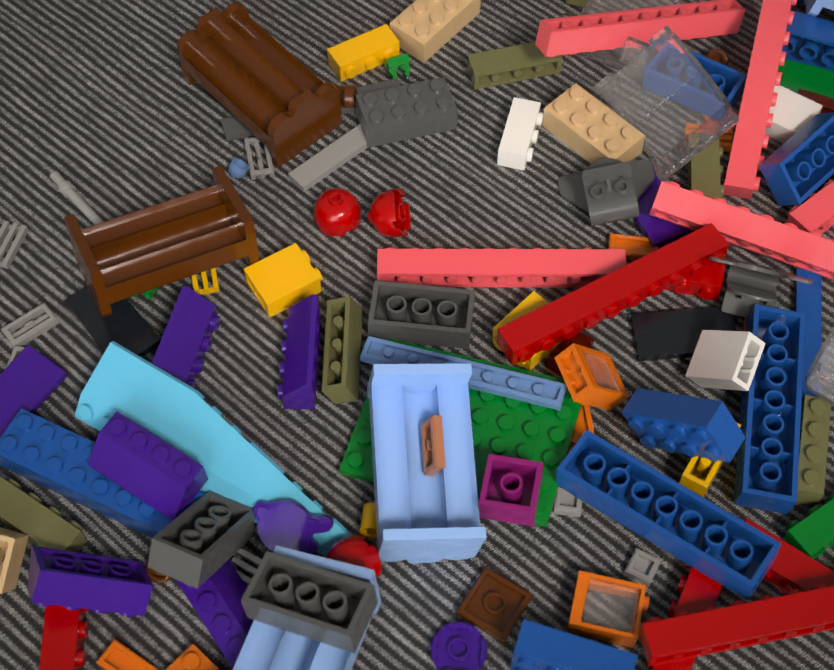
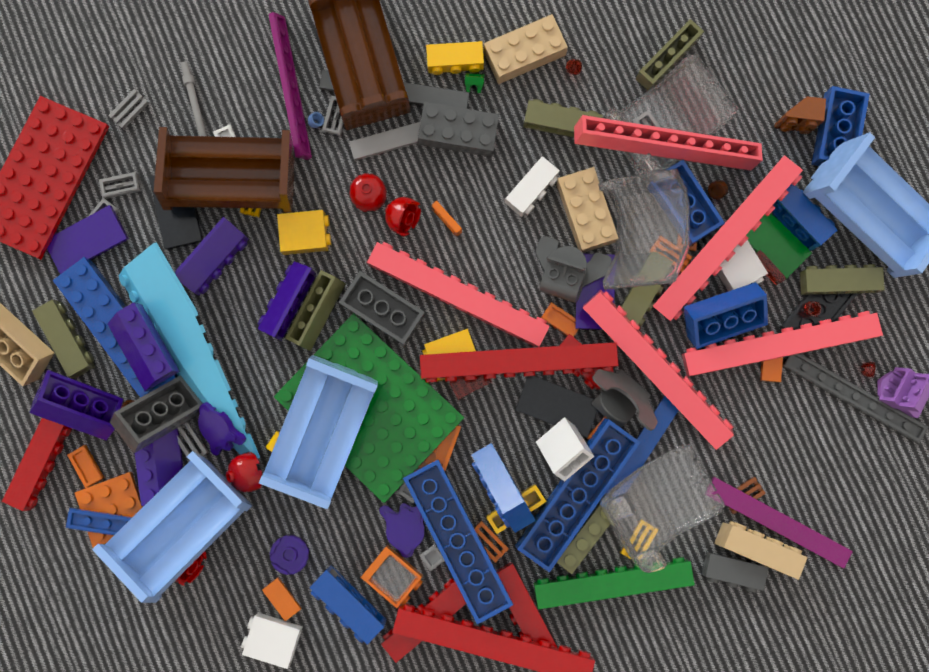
camera: 25 degrees right, 25 degrees up
(181, 133) = (290, 86): none -> magenta tile
(310, 601) = (193, 502): dark grey brick -> none
(350, 93) = (423, 95): reddish brown tile -> none
(432, 445) = (330, 422): nougat tile -> none
(442, 199) = (446, 218): none -> orange tile
(483, 377) = (386, 369): medium blue tile -> none
(494, 605) = (326, 536): reddish brown tile -> none
(495, 14) = (574, 66): none -> clear red hinge
(511, 490) = (366, 477): magenta brick -> none
(586, 546) = (403, 528): none -> dark purple tile
(591, 377) = (468, 416): orange window -> none

